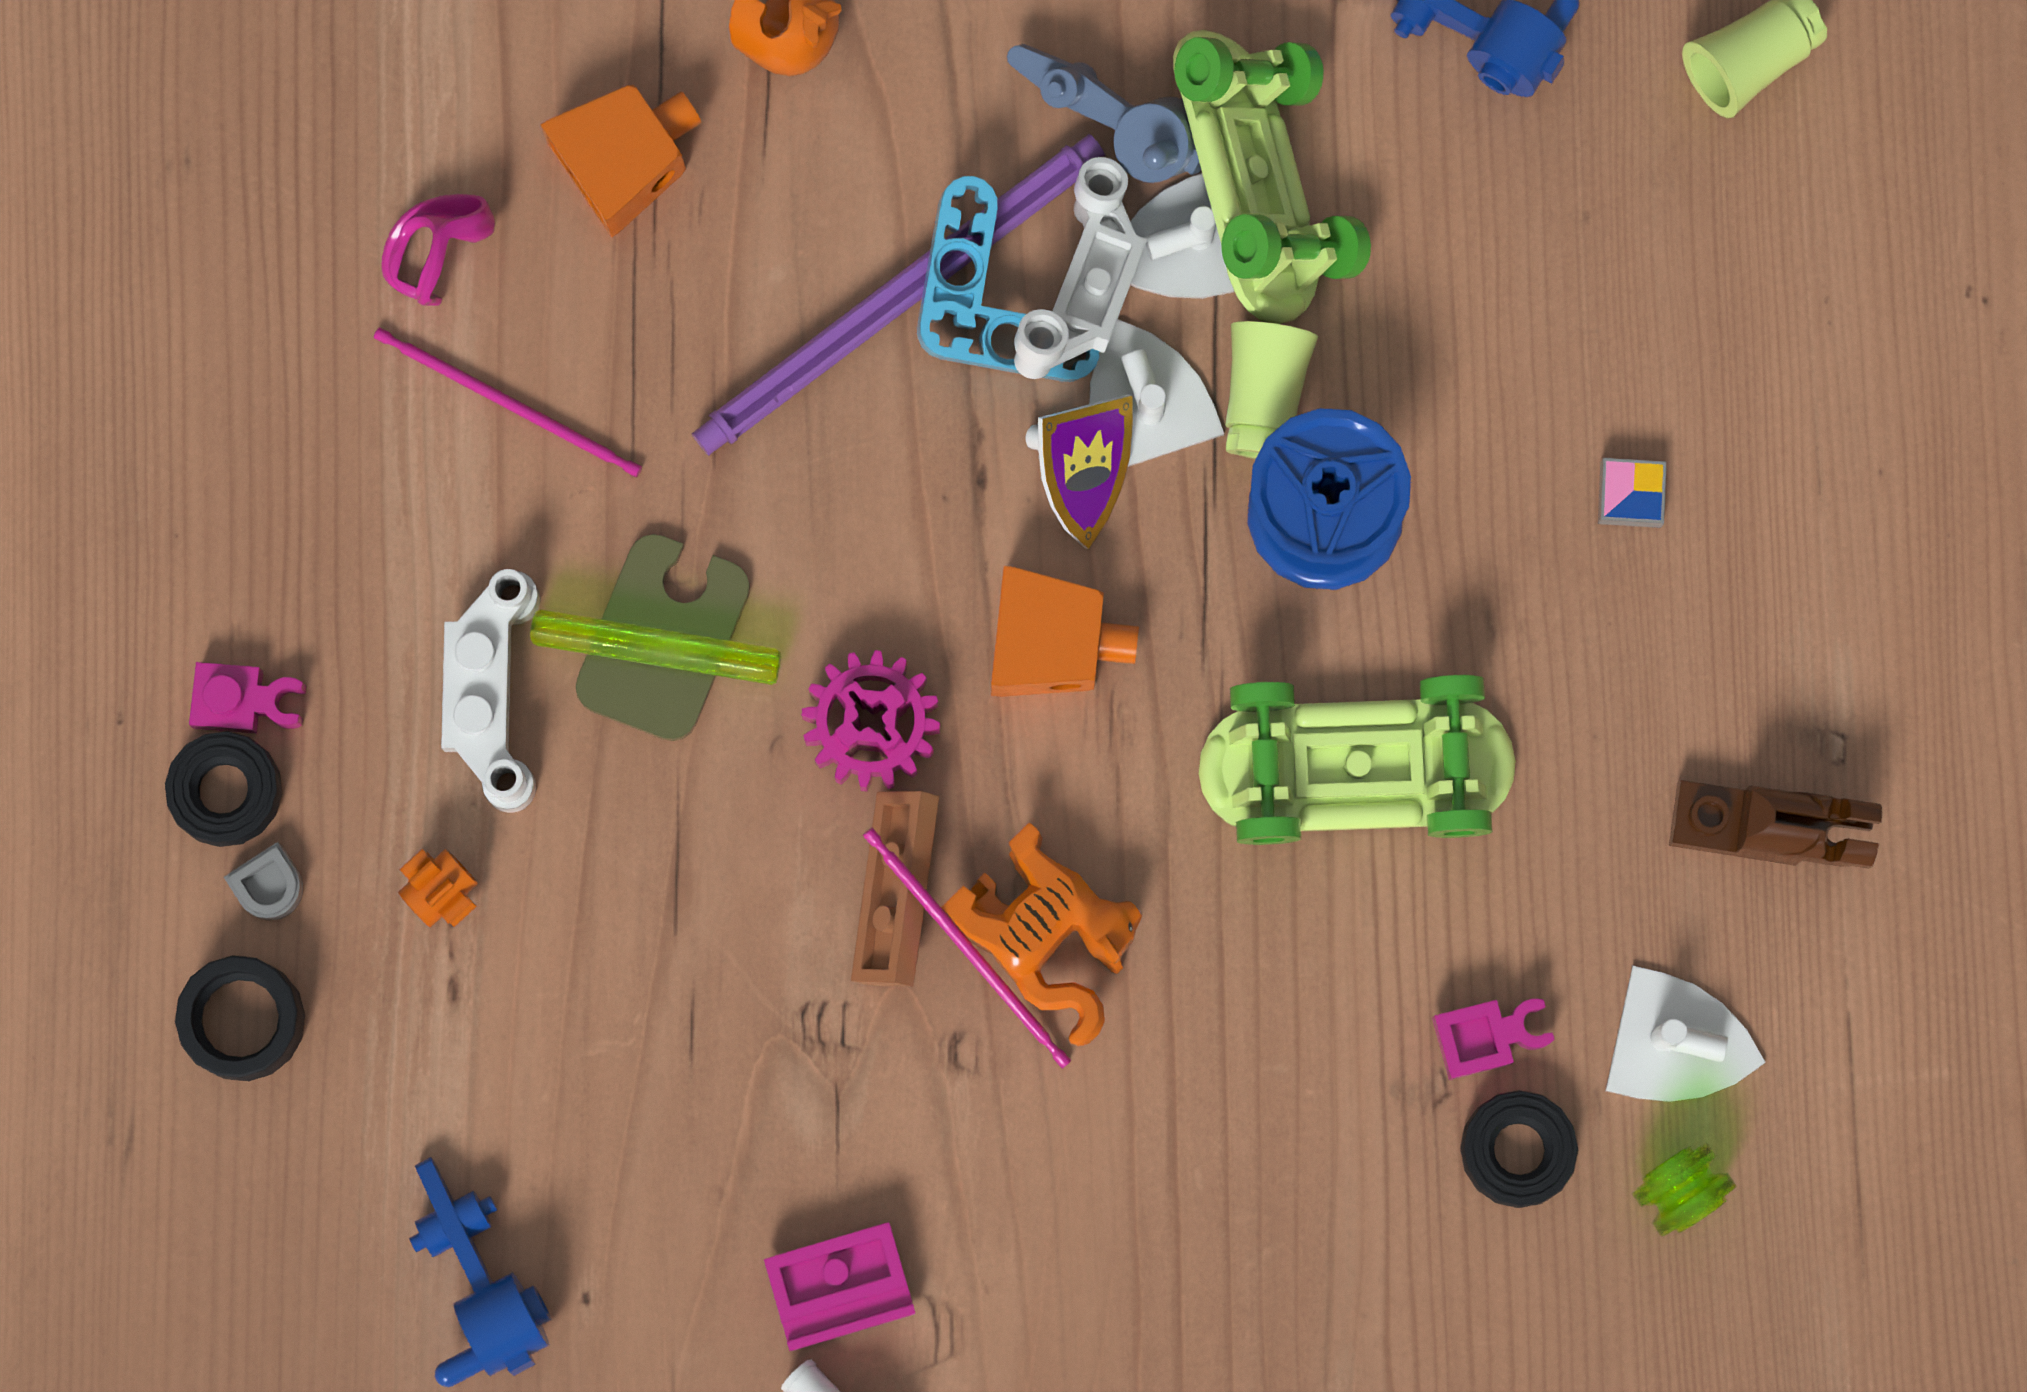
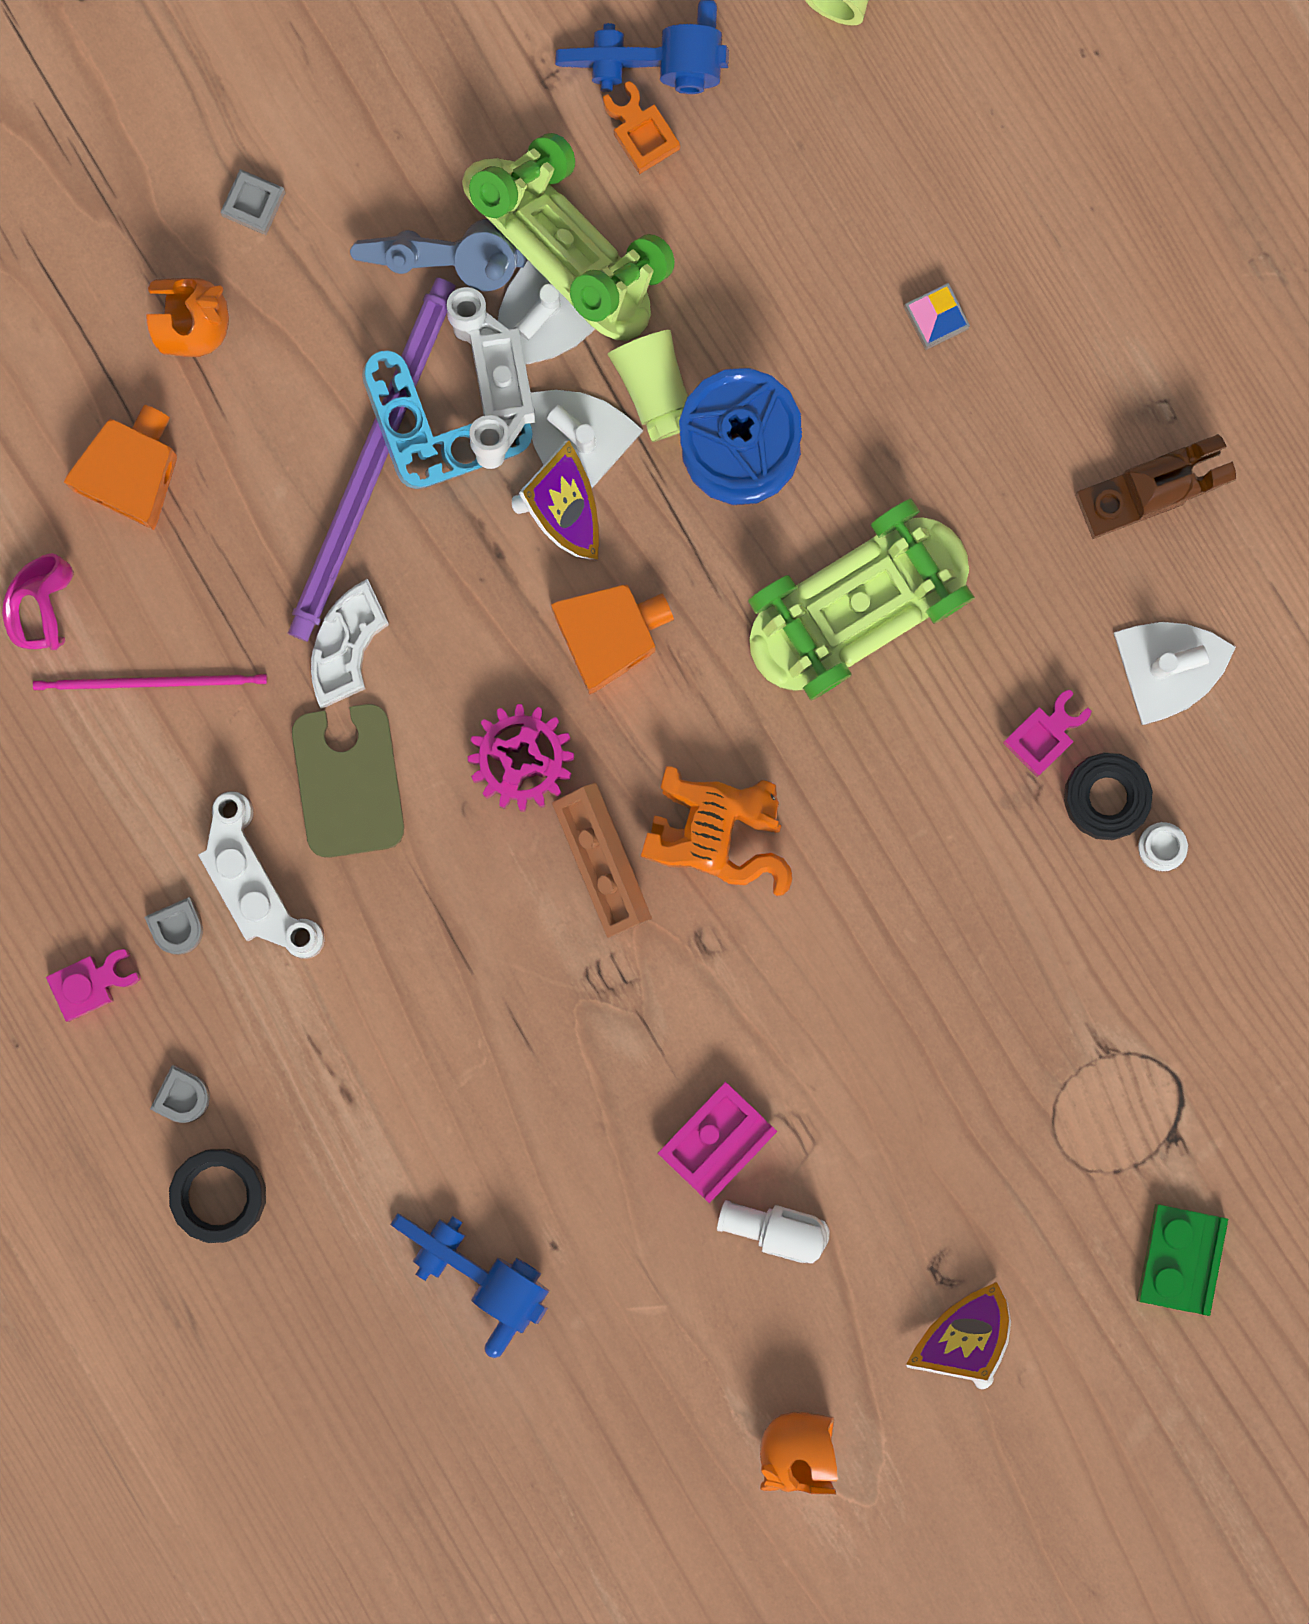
camera: 30 degrees left, 5 degrees up
(186, 777) = (85, 1042): black tyre -> none
(374, 691) = (176, 927): none -> light grey tile
(437, 888) = (298, 1034): orange gear -> none
(655, 647) = (348, 790): clear neon green axle -> none
(747, 480) = (342, 643): none -> white tile
(966, 947) = (672, 872): dark pink piece -> none
(1413, 104) = (643, 133): none -> orange plate
(1549, 1243) = (1162, 846): none -> white plate
(1684, 1189) = (1231, 761): clear neon green wheel -> none

